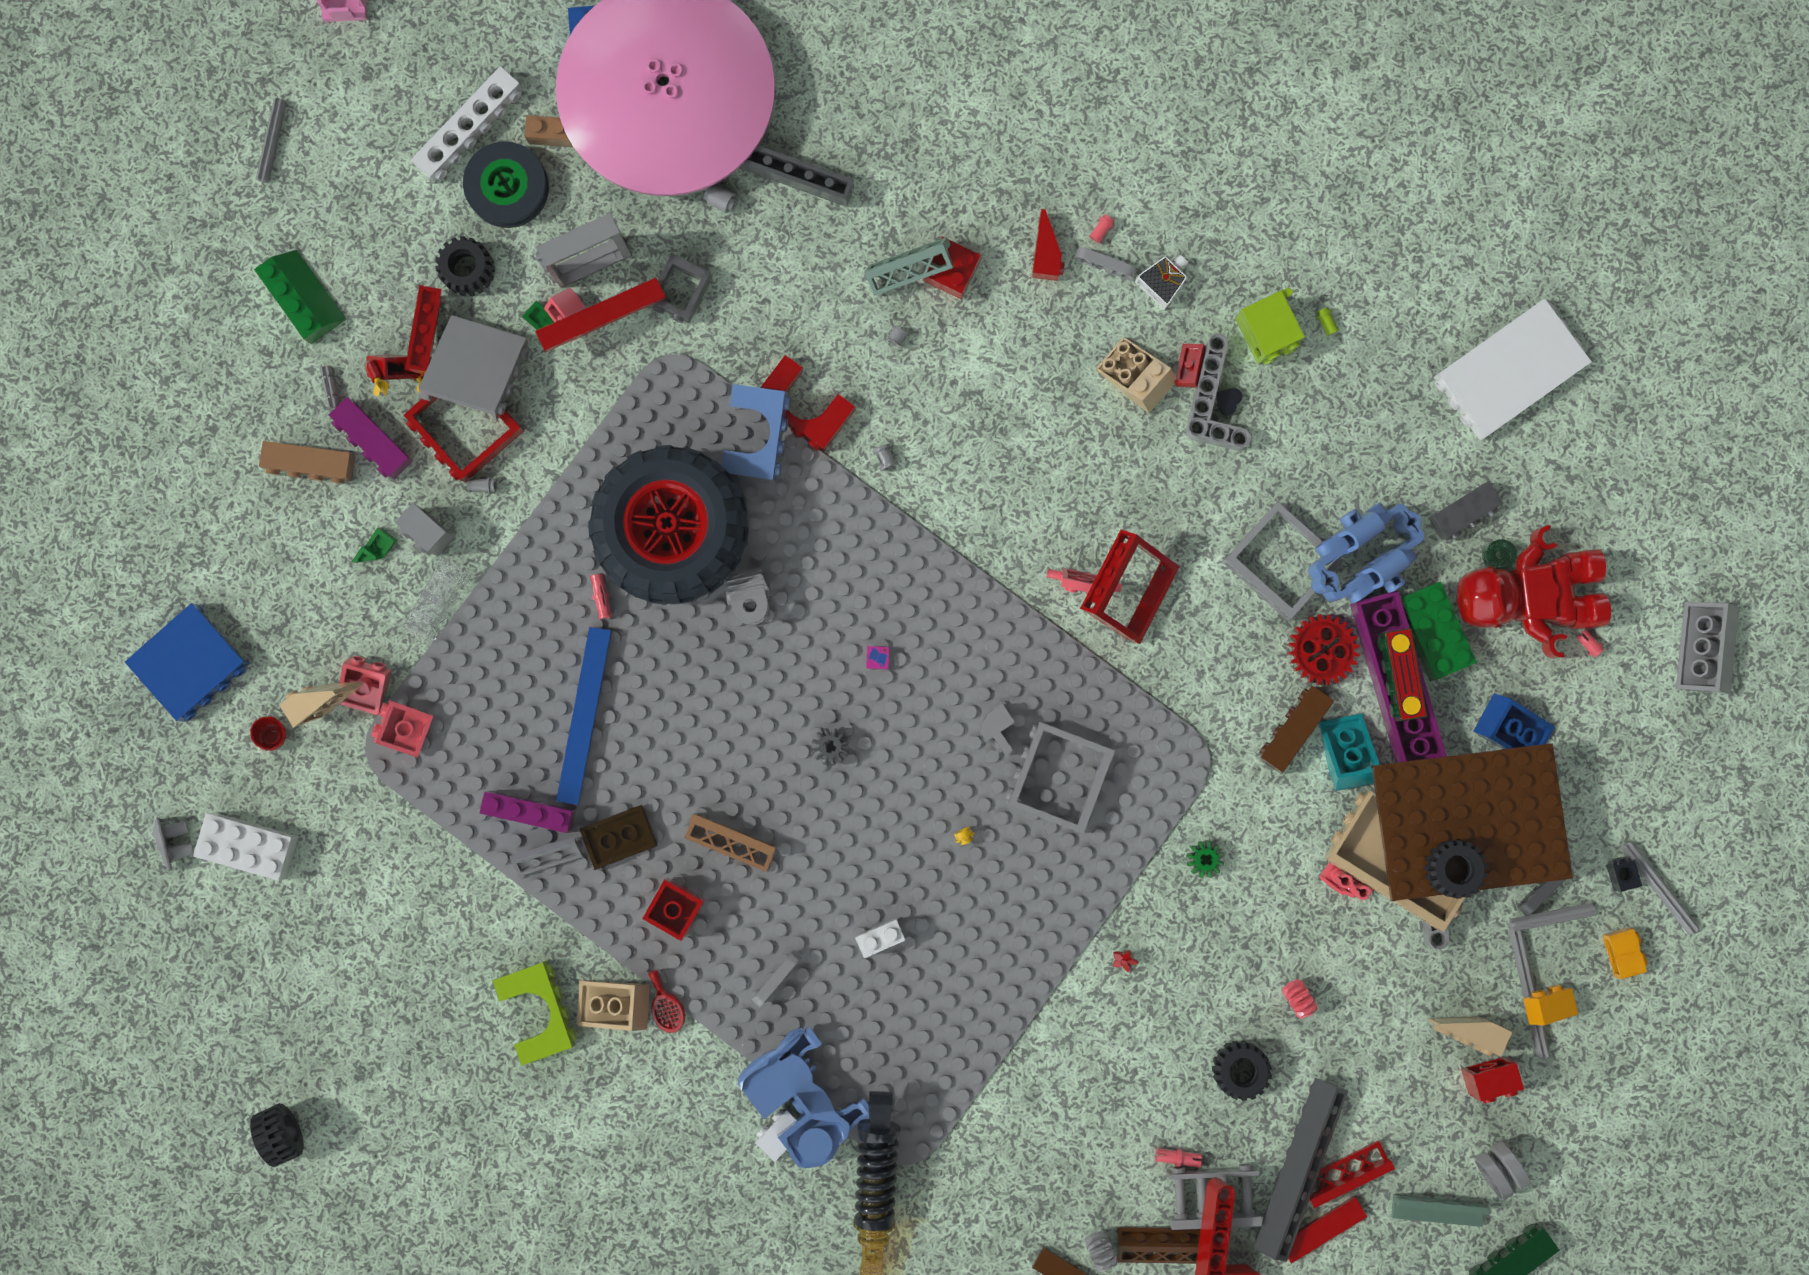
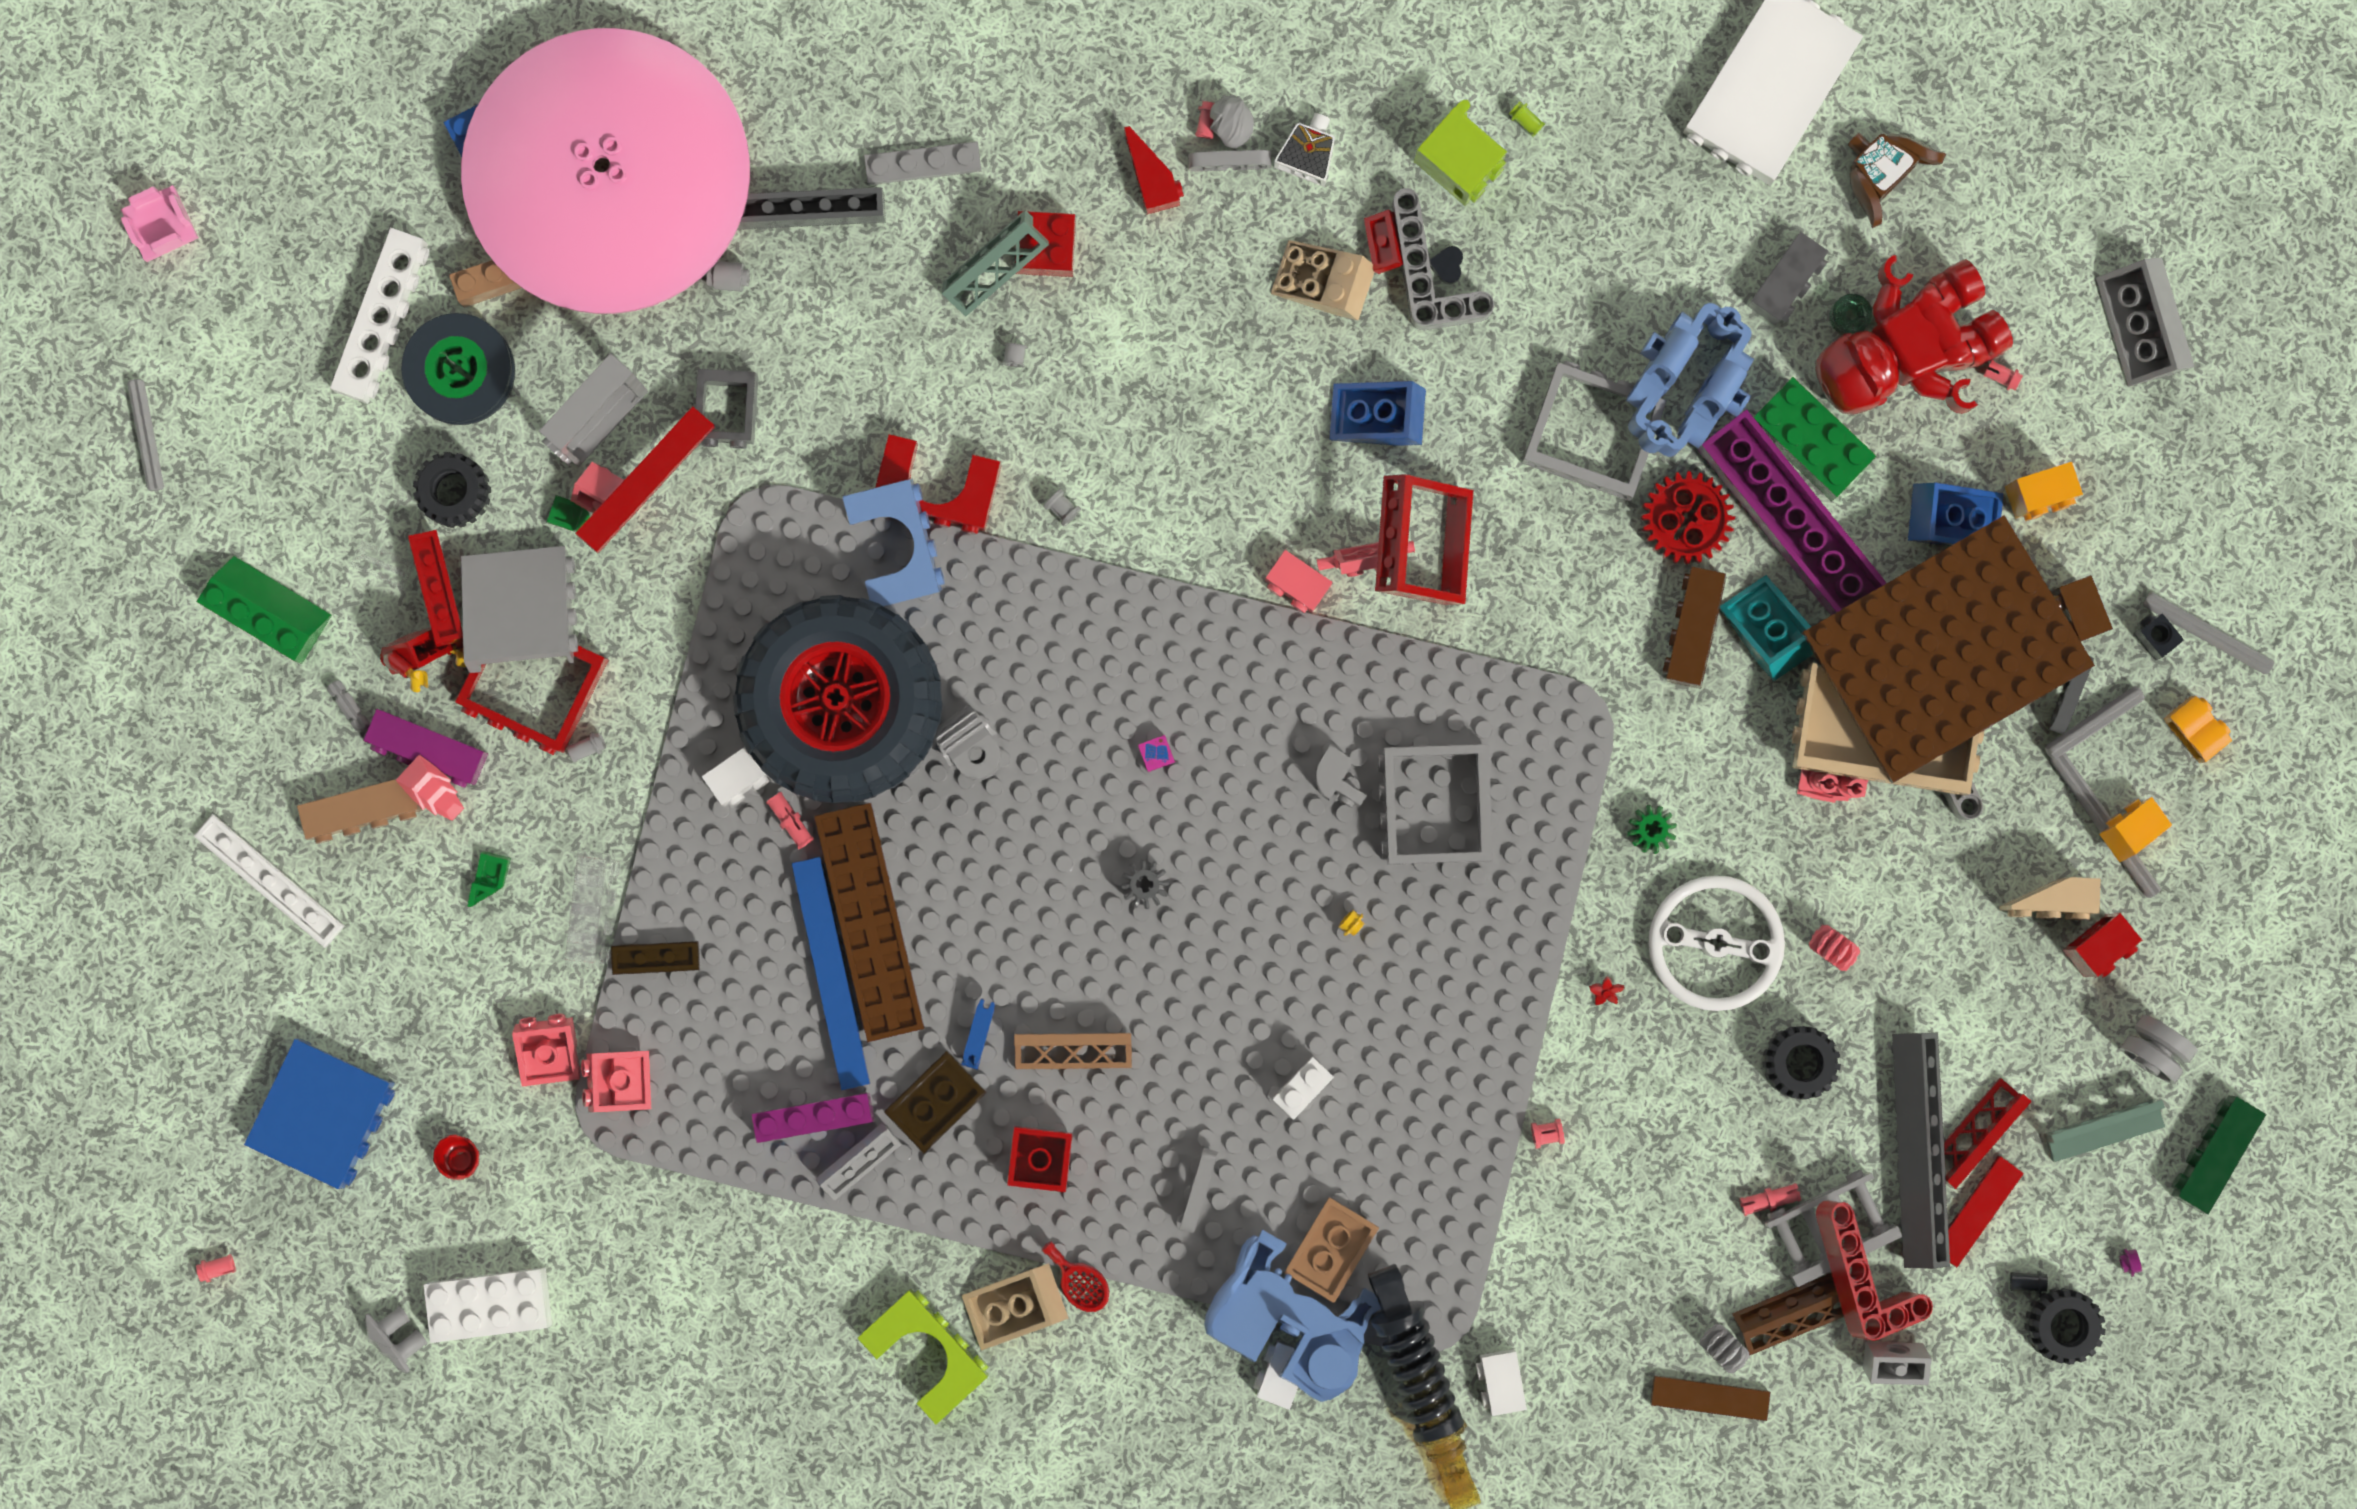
camera: 25 degrees left, 0 degrees up
(69, 739) = (215, 1268): none -> coral pin
(223, 485) = (269, 880): none -> white tile
(316, 701) = (498, 1095): tan slope -> none
(360, 468) = (430, 788): none -> coral connector
(423, 528) = (543, 830): light grey brick -> none
(466, 652) = (655, 958): none -> dark brown tile
(574, 550) = (735, 777): none -> white brick
(626, 691) = (869, 922): none -> reddish brown plate
(668, 802) = (978, 1035): none -> blue piece
(852, 1061) = (1331, 1249): none -> medium nougat plate
(890, 176) = (922, 163): none -> light grey plate
(933, 1206) = (1502, 1382): none -> white brick
(1028, 578) = (1297, 582): none -> coral brick
(1032, 1045) = (1547, 1133): none -> coral bush
(1119, 236) = (1232, 121): none -> light grey hair
(1135, 484) = (1378, 413): none -> blue slope
(1256, 980) = (1773, 947): none -> white piece
(1402, 675) = (1793, 508): brick -> none
(1474, 869) = (1973, 702): black tyre -> none
(1566, 460) = (1883, 166): none -> reddish brown torso
(1581, 833) = (2083, 608): none -> reddish brown brick
(1587, 737) = (2046, 489): none -> light orange brick

